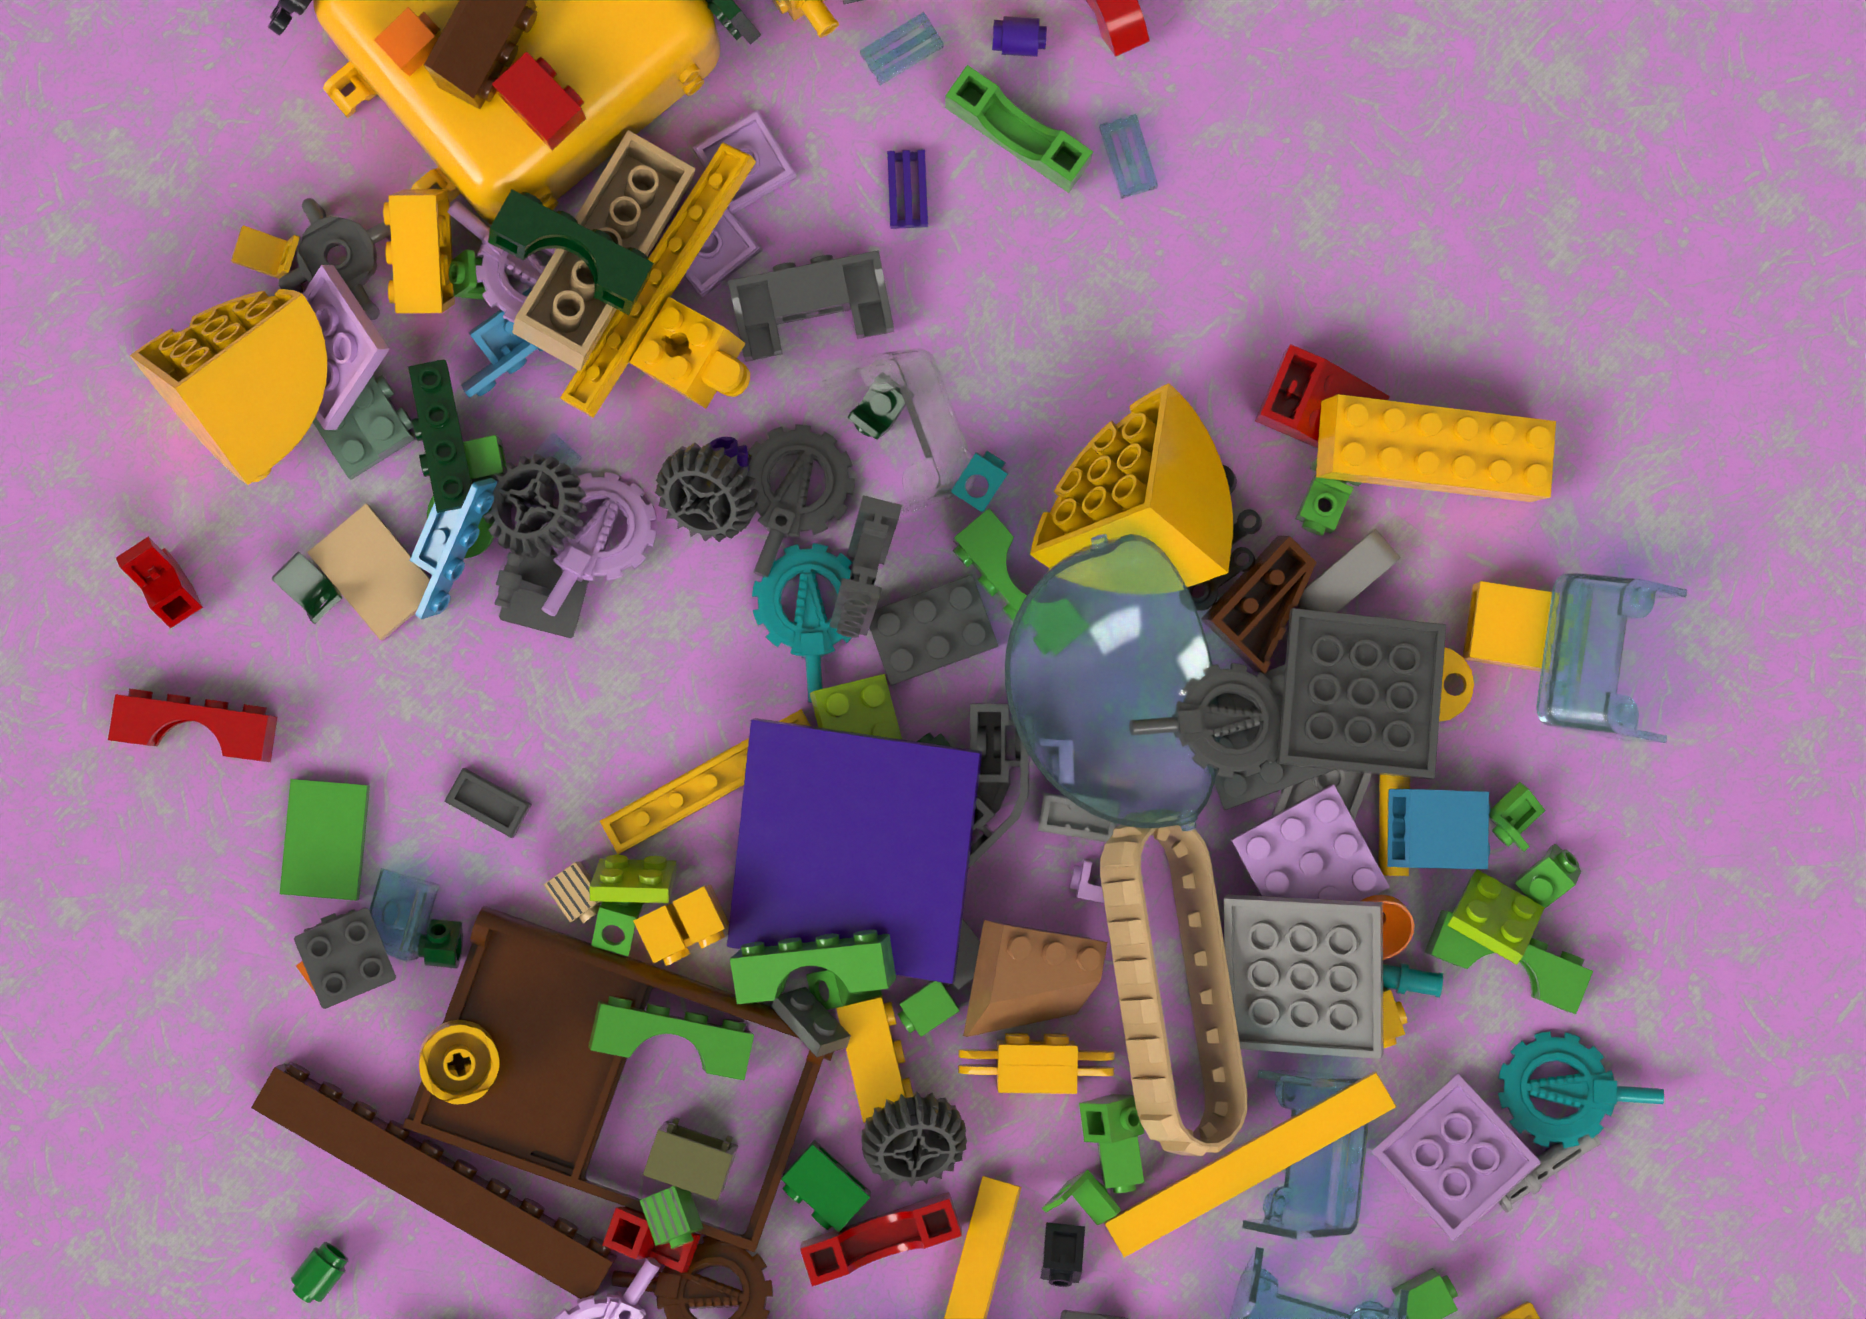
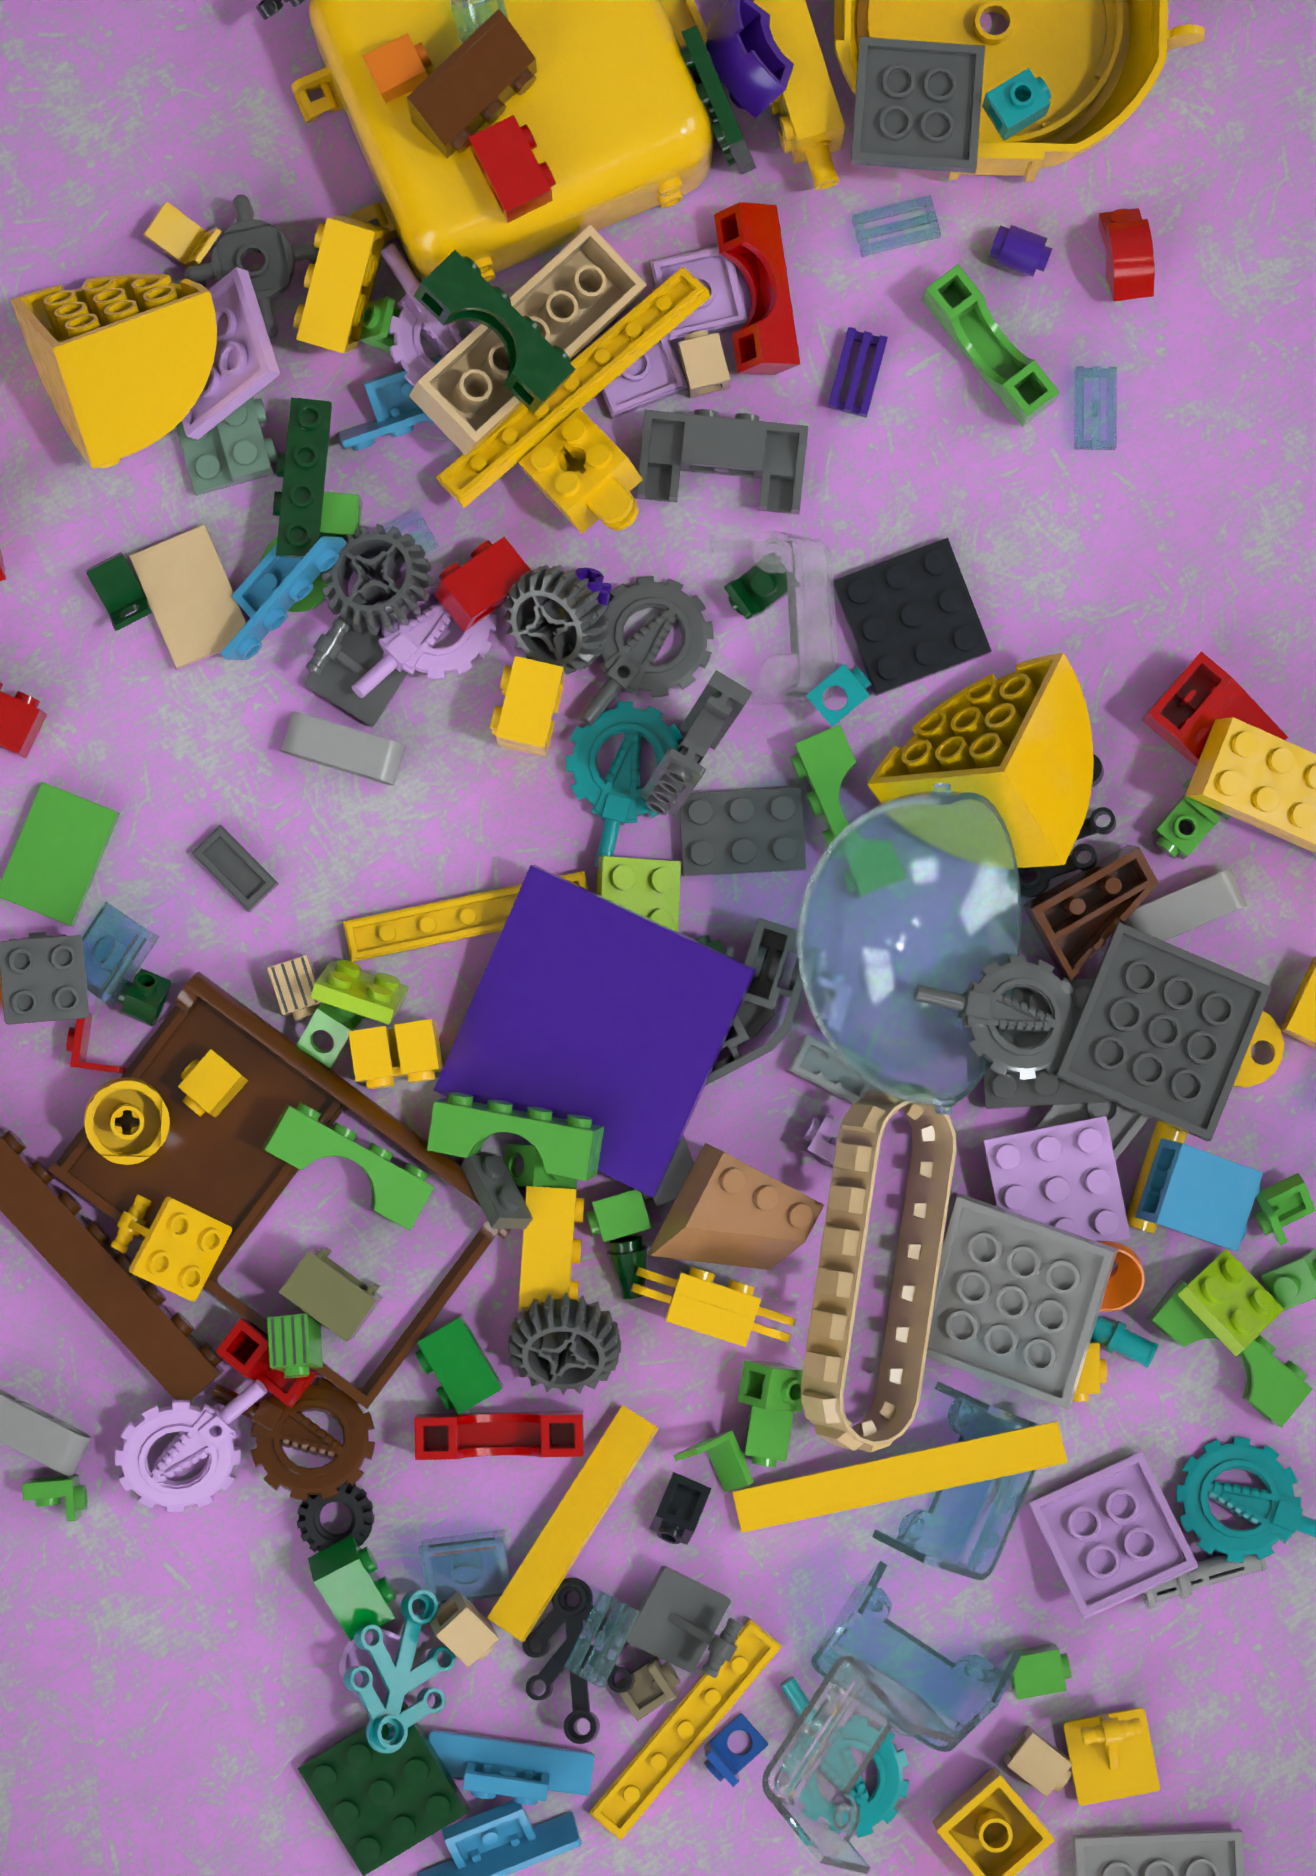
camera: 15 degrees right, 0 degrees up
(395, 1005) = (78, 1042): none -> red bracket
(525, 1004) = (210, 1084): none -> yellow brick
(539, 1161) = (176, 1248): none -> yellow plate
(551, 666) = (342, 748): none -> light grey beam
(629, 480) = (481, 583): none -> red brick
(705, 572) = (531, 698): none -> yellow piece
(768, 223) = (703, 363): none -> tan brick
(777, 100) = (753, 241): none -> red arch
(944, 1044) = (625, 1257): none -> dark green cone
(1023, 392) = (912, 616): none -> black plate

